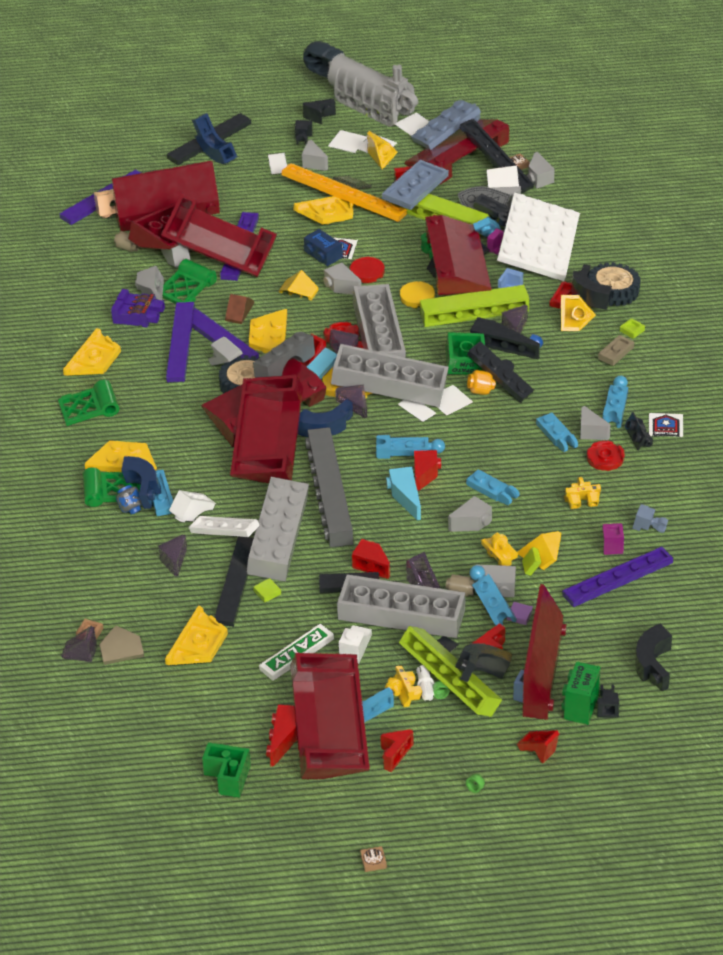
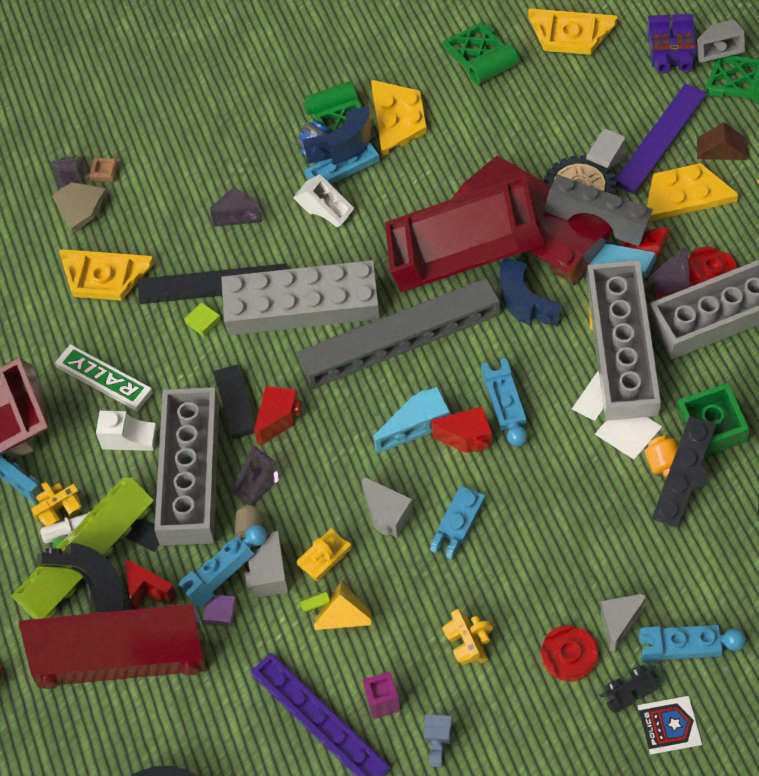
camera: 80 degrees right, 15 degrees up
(180, 342) = (626, 104): dark purple tile -> none
(224, 526) = (284, 241): white tile -> none
(356, 395) = (571, 317): slope -> none
(556, 432) = (599, 577): dark azure hinge -> none
(581, 692) = (59, 712): green brick -> none
(609, 703) = (63, 754): black piece -> none

